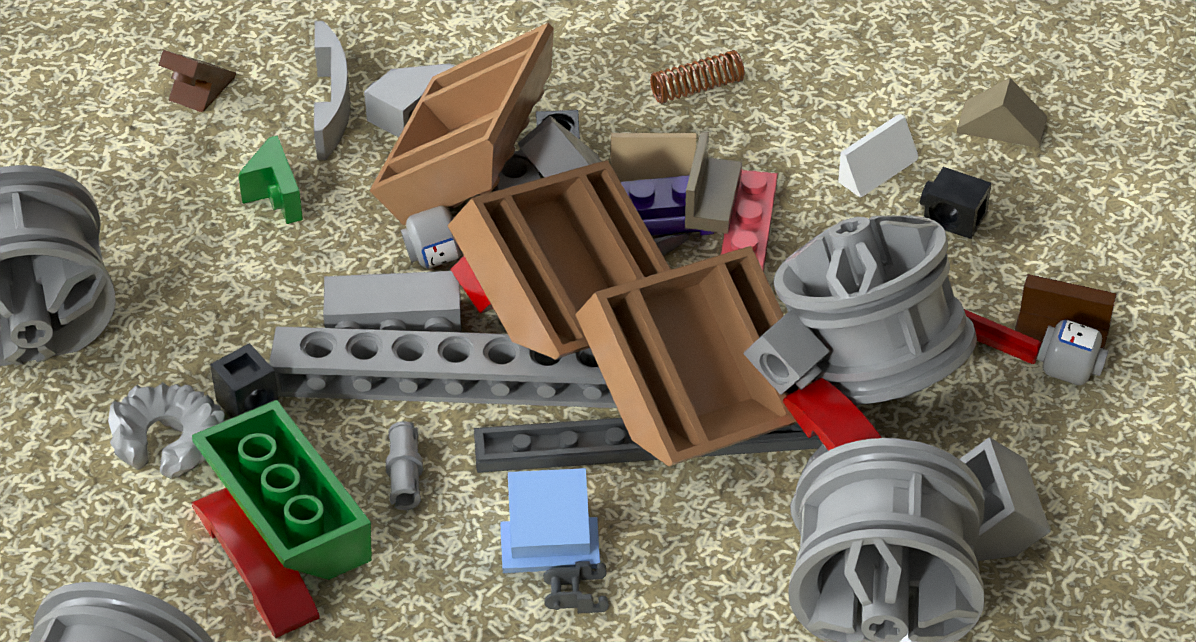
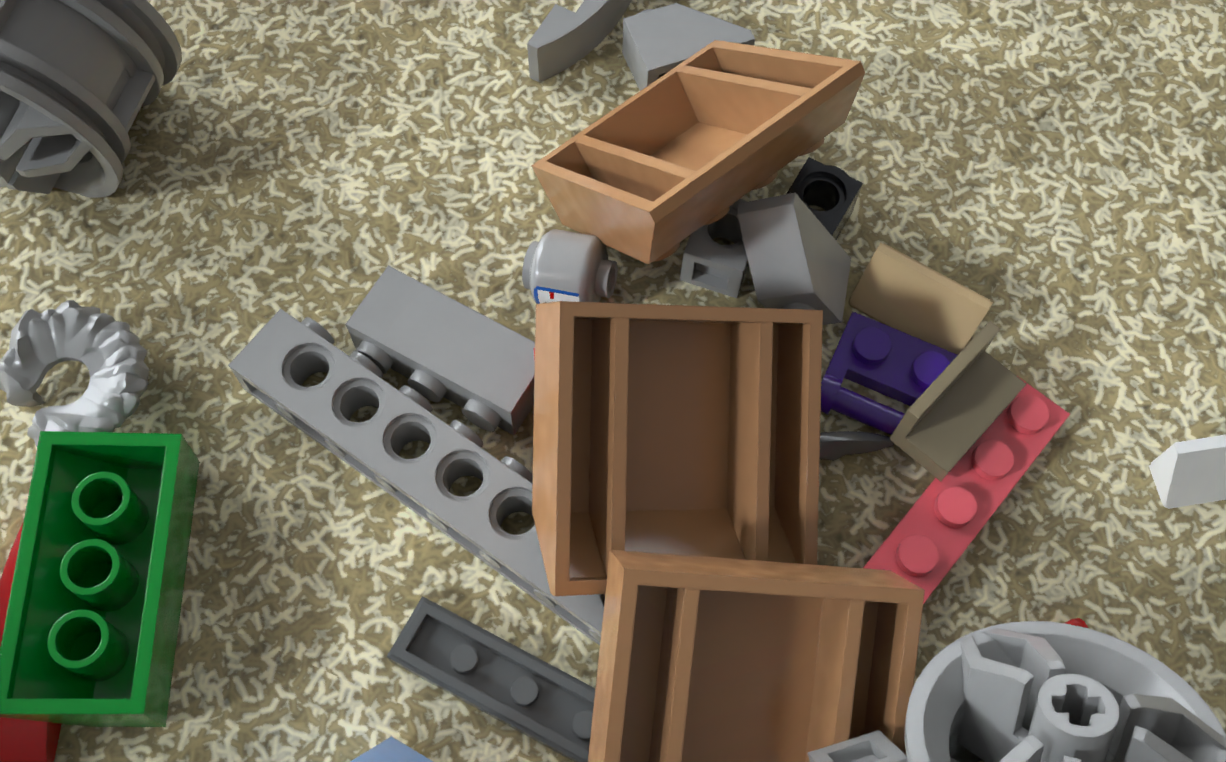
camera: 30 degrees right, 20 degrees up
(243, 381) = (189, 372): black brick -> none
(271, 177) = (448, 79): green slope -> none
(404, 465) = (299, 605): light grey pin -> none
(658, 81) = (999, 197): dark orange piece -> none

